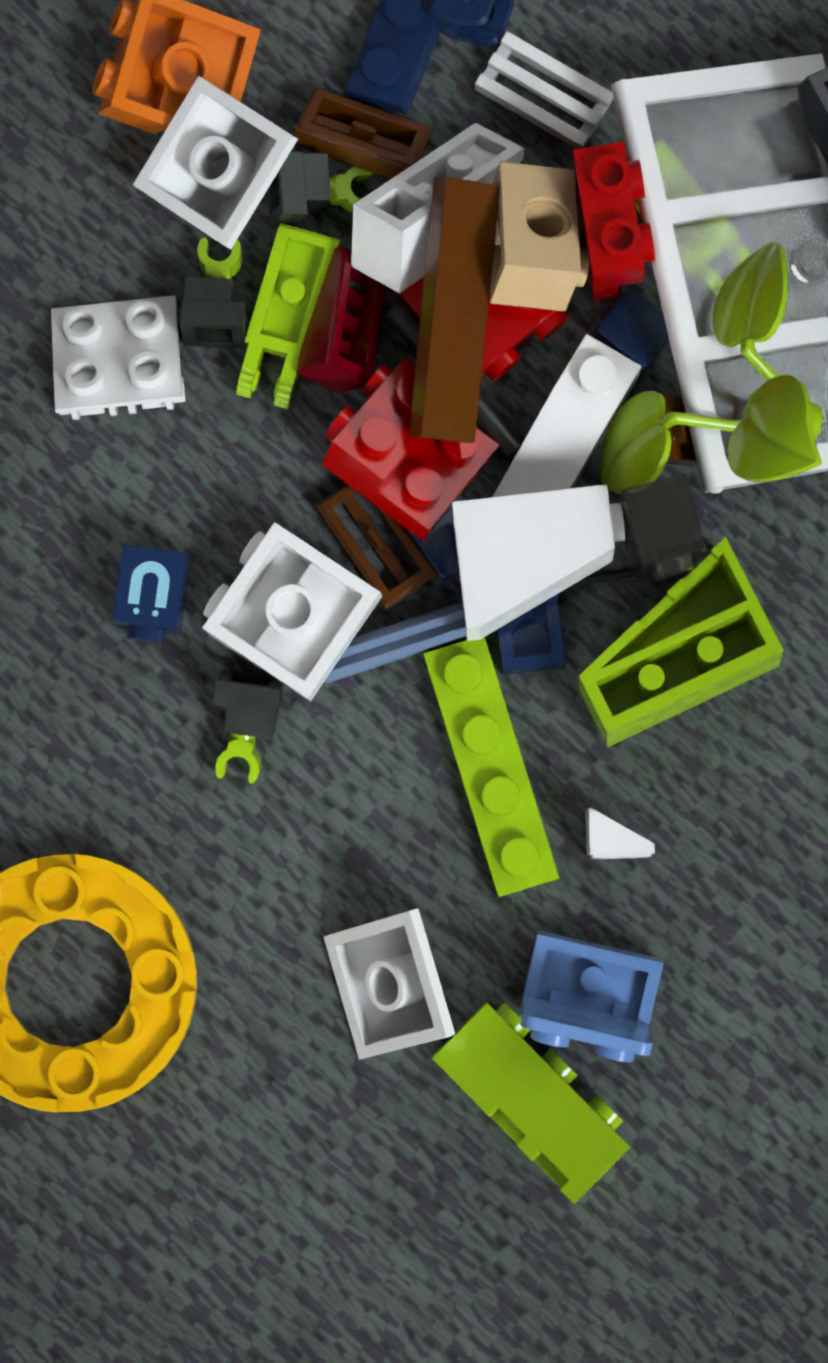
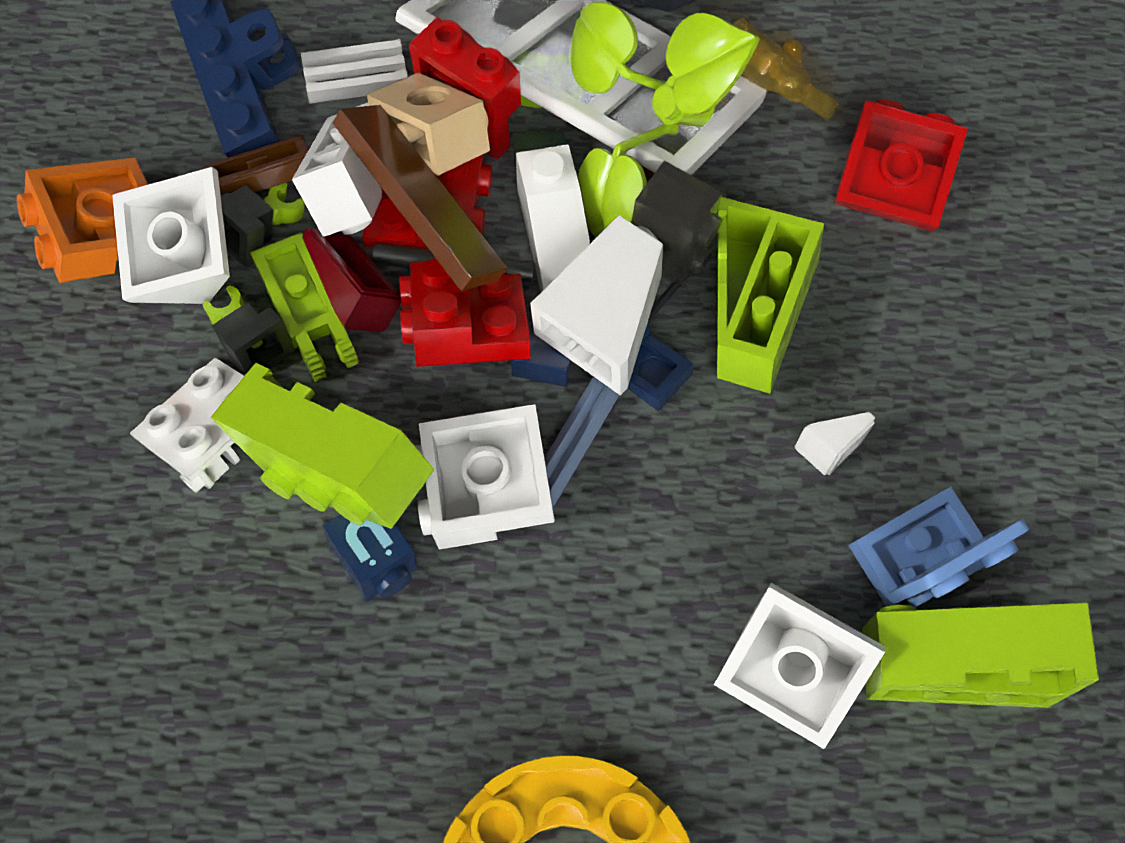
camera: 50 degrees left, 20 degrees down
(169, 486) = (320, 453): none -> lime wedge
(250, 713) = (515, 568): pearl dark grey piece -> none
(407, 584) = (498, 374): reddish brown tile -> none
(491, 766) = (711, 470): lime plate -> none

